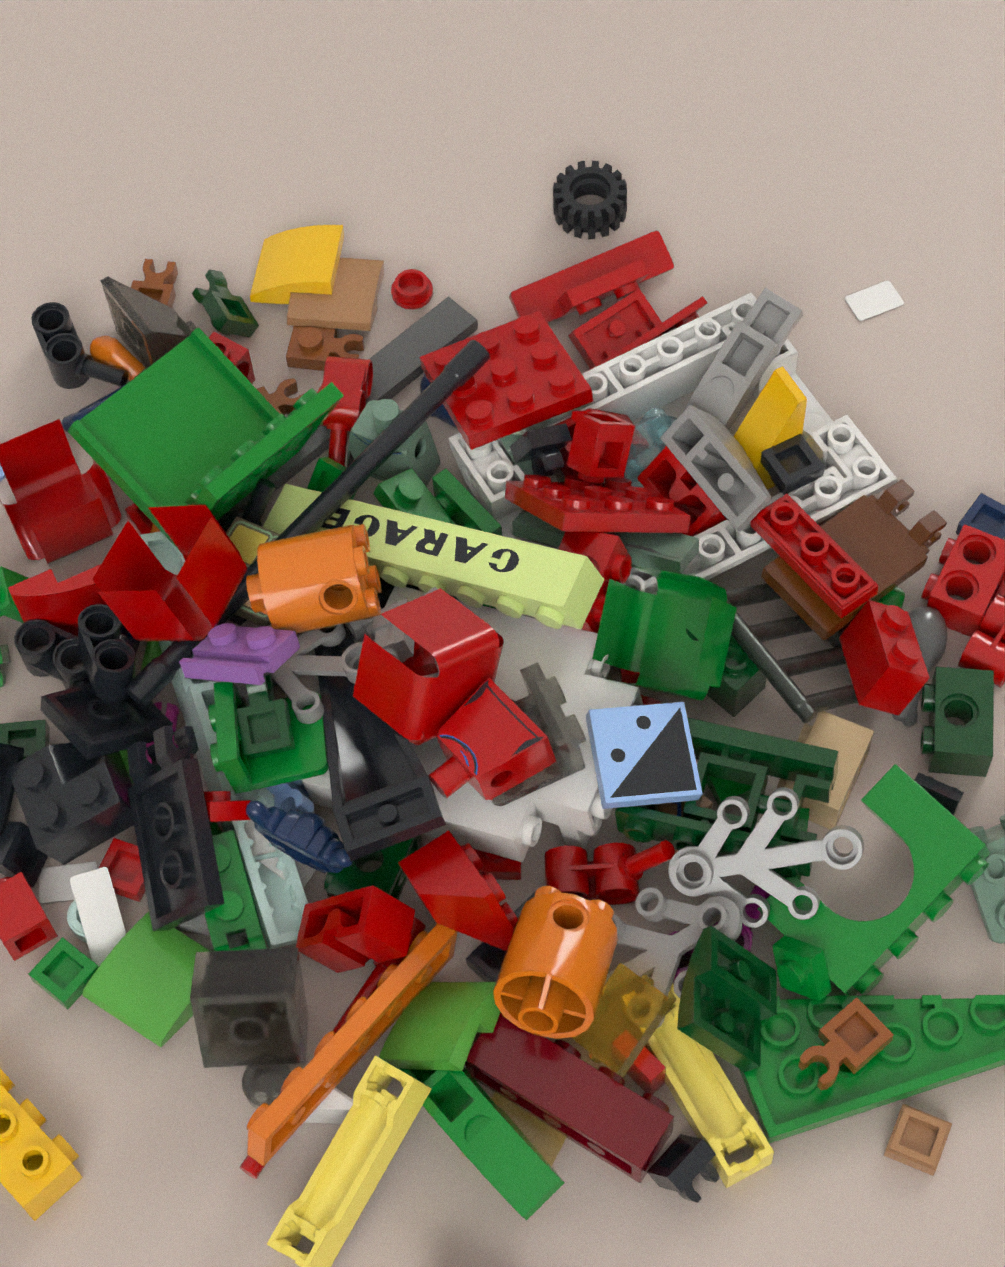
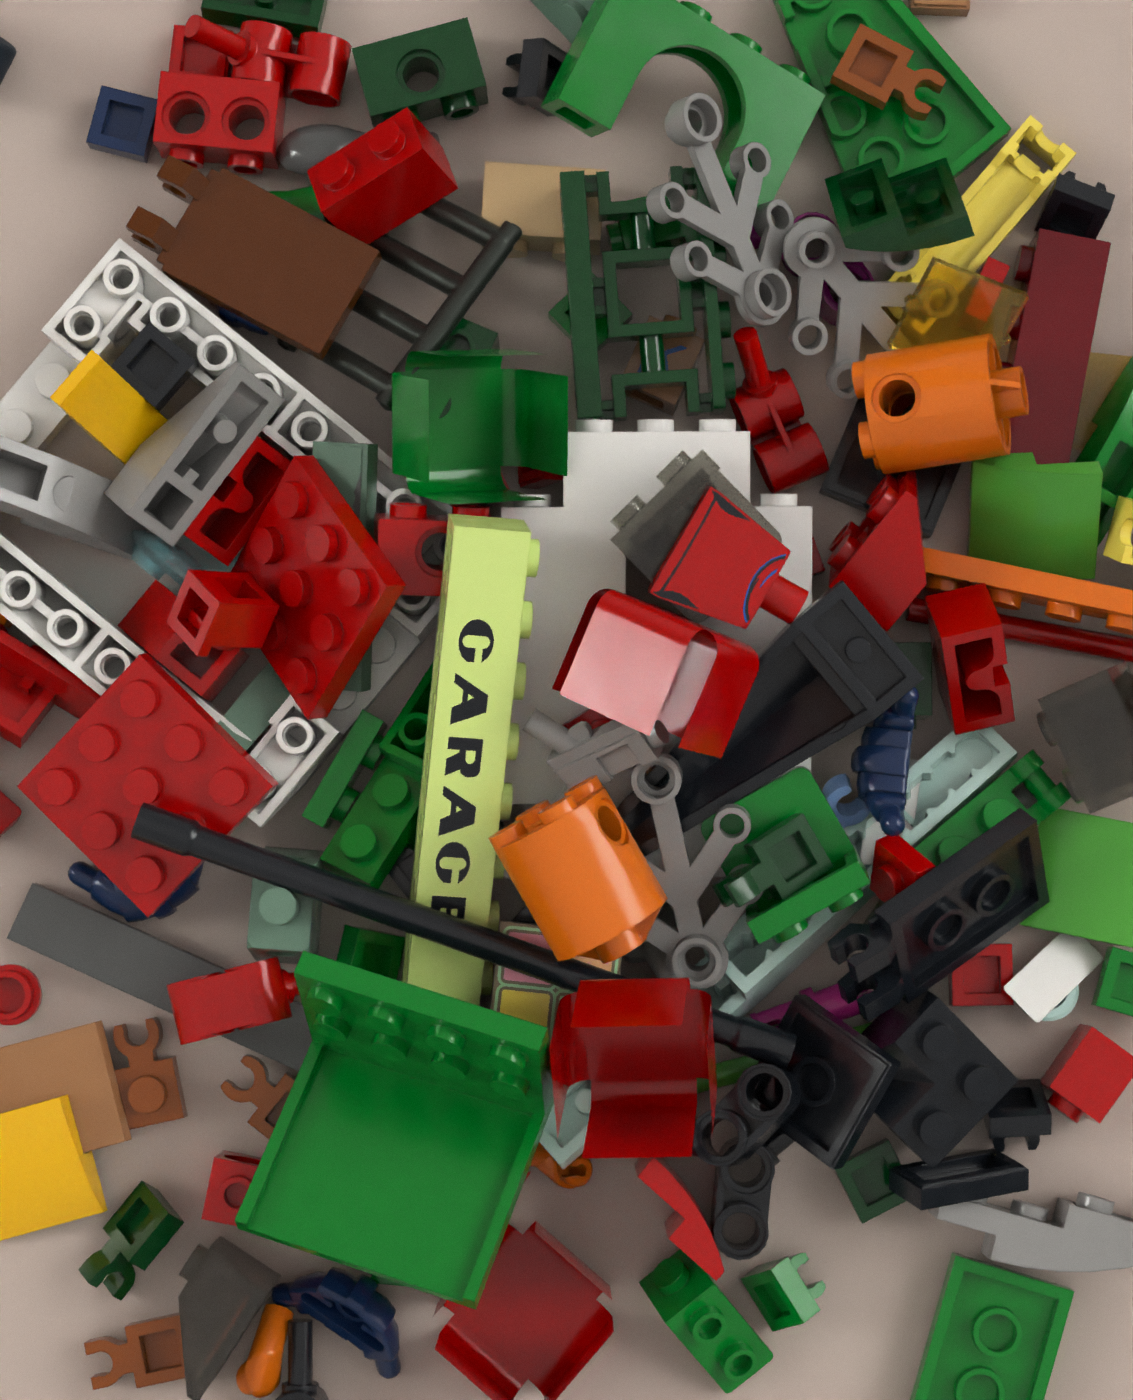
camera: 115 degrees left, 25 degrees up
(55, 881) = (1013, 1041): white sticker -> none
(240, 654) = (715, 923): medium lavender plate -> none
(542, 448) = (245, 690): black tile -> none
(643, 755) = (654, 391): light blue tile -> none
(802, 968) = (814, 151): green plate -> none
(814, 556) = (303, 259): red tile -> none

